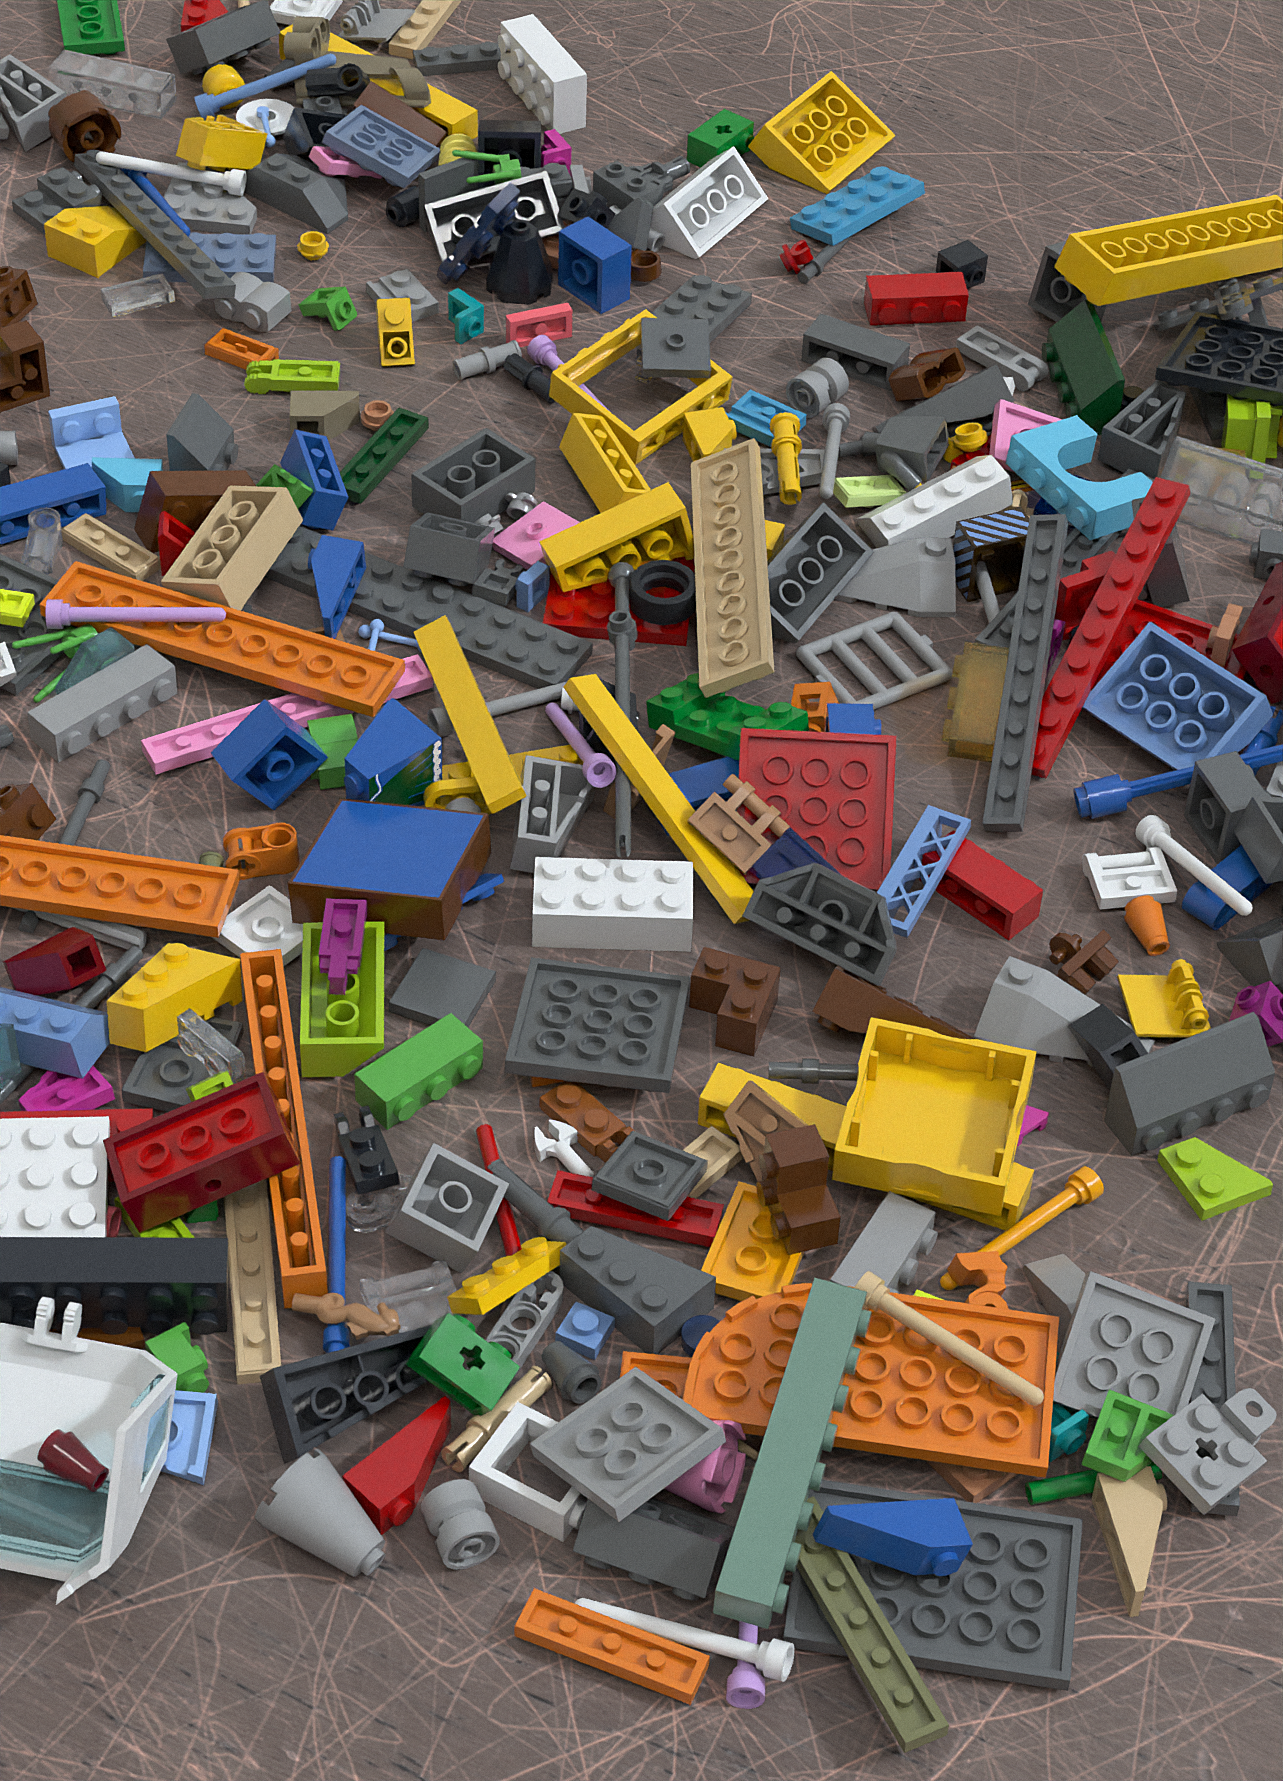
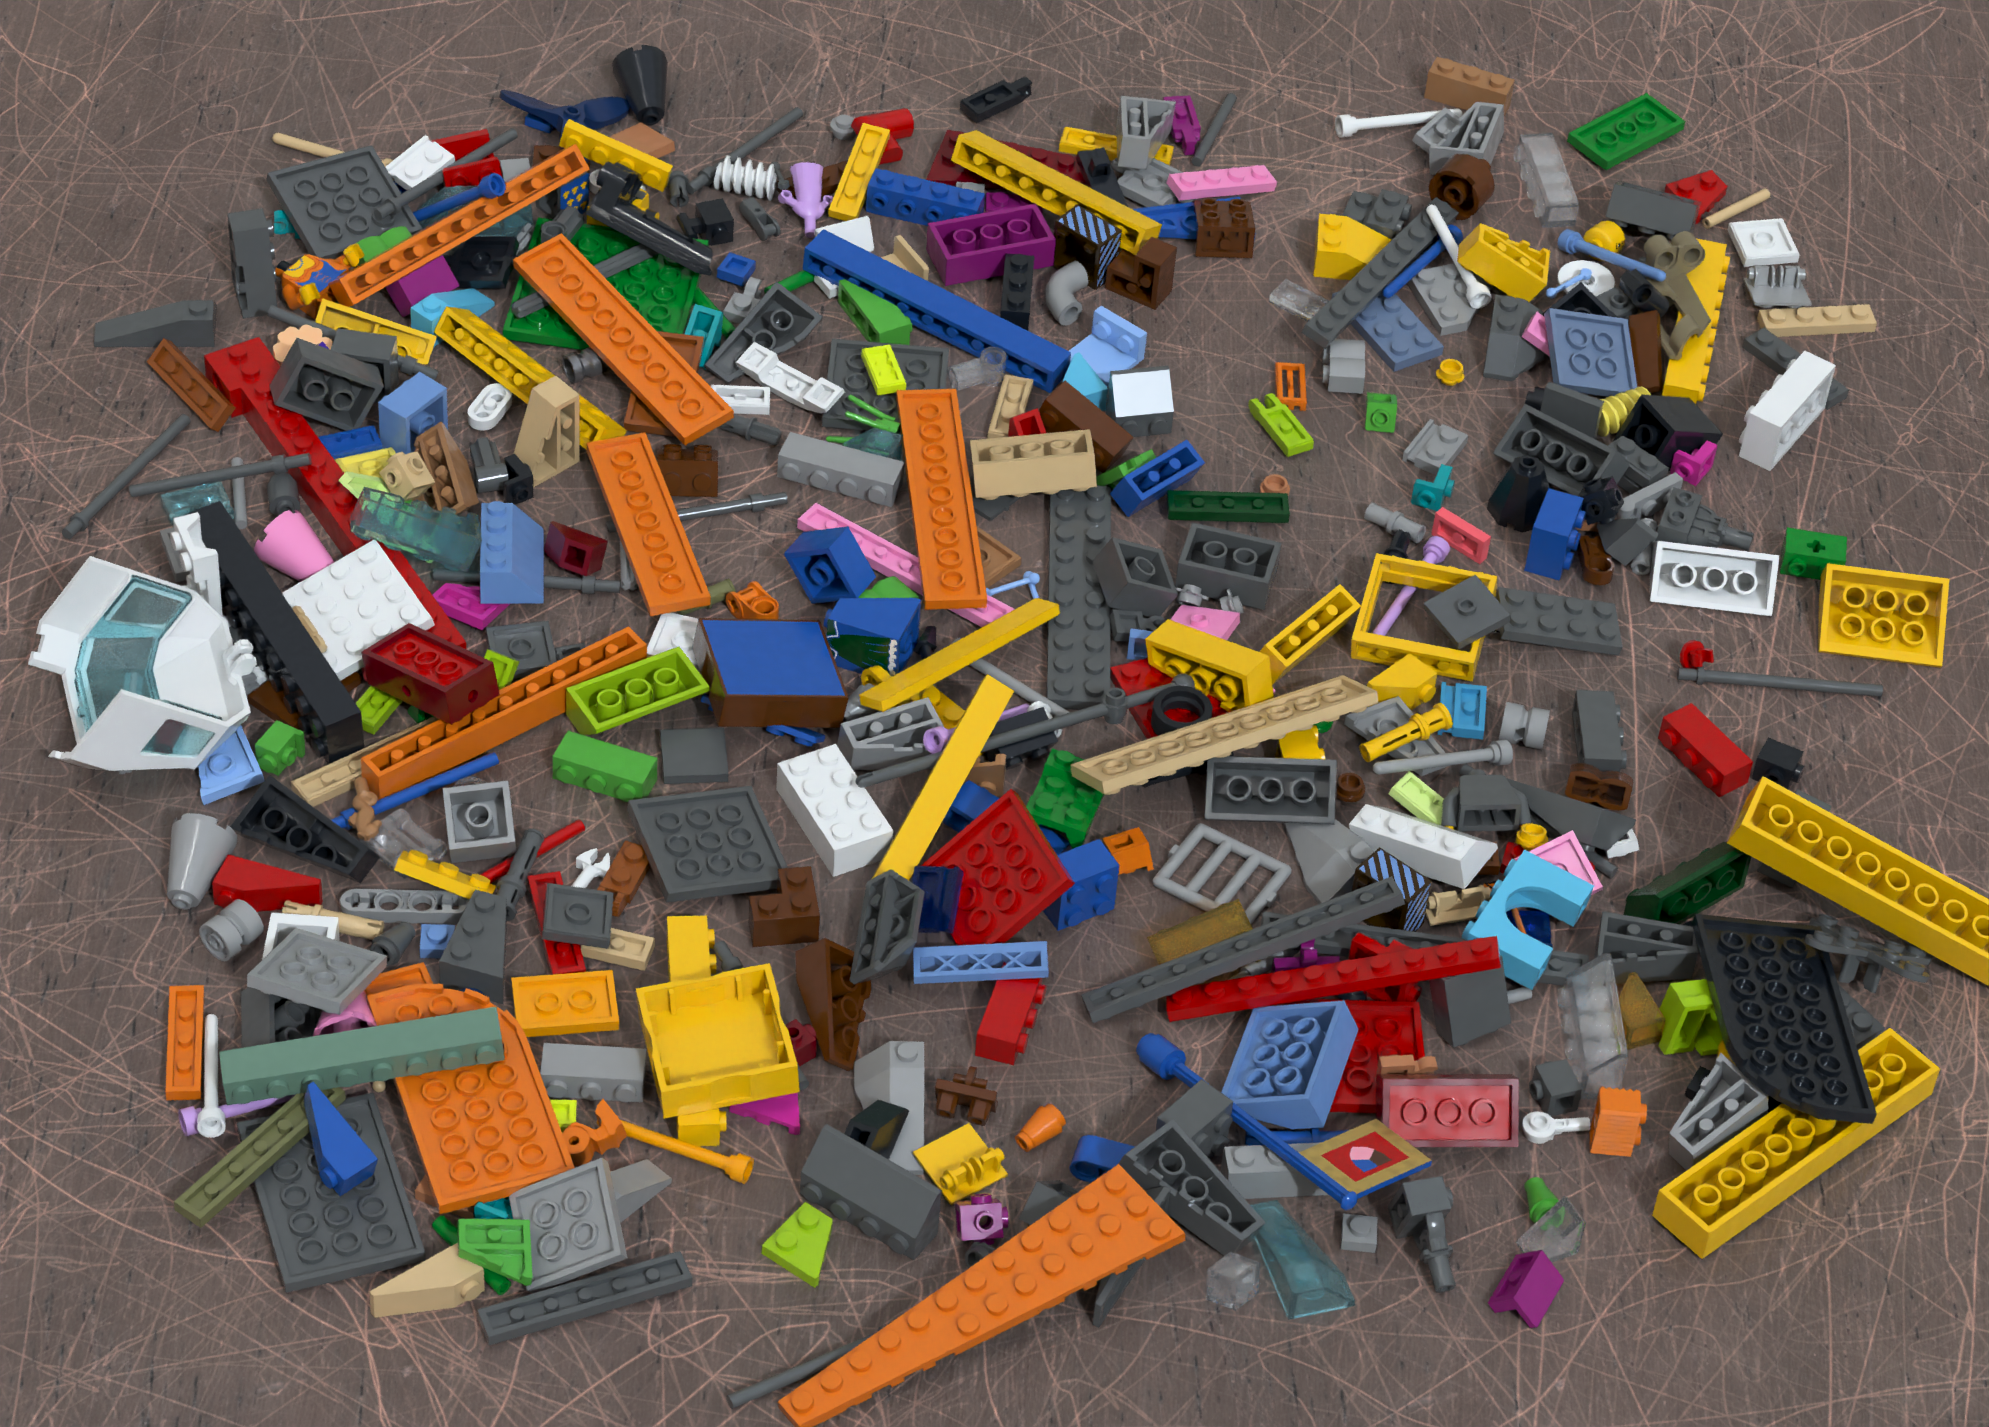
camera: 60 degrees right, 0 degrees up
(63, 614) = (890, 403): lavender piece -> none
(170, 983) = (570, 608): yellow wedge -> none
(209, 1046) = (541, 645): clear plate -> none
(324, 412) = (1243, 455): dark tan slope -> none
(336, 575) = (1044, 531): blue slope -> none
(342, 941) = (664, 667): magenta hinge -> none
(366, 1153) = (515, 766): black hinge -> none
(395, 332) = (1378, 457): yellow slope -> none
(441, 1361) = (333, 859): brick -> none
(477, 240) = (1512, 442): dark blue plate -> none
(502, 172) = (1601, 430): bright green plant -> none
(731, 832) = (934, 836): medium nougat plate -> none
(753, 1117) = (655, 960): medium nougat wing -> none
(796, 1190) = (605, 995): reddish brown brick -> none
(857, 205) = (1801, 670): dark azure plate -> none
(879, 1298) = (520, 1055): tan piece -> none
(1012, 361) = (1676, 829): light grey plate -> none
(1127, 876) = (1081, 1108): white plate -> none
(1156, 833) = (1144, 1103): white piece -> none
(1224, 1433) = (533, 1295): light grey plate -> none

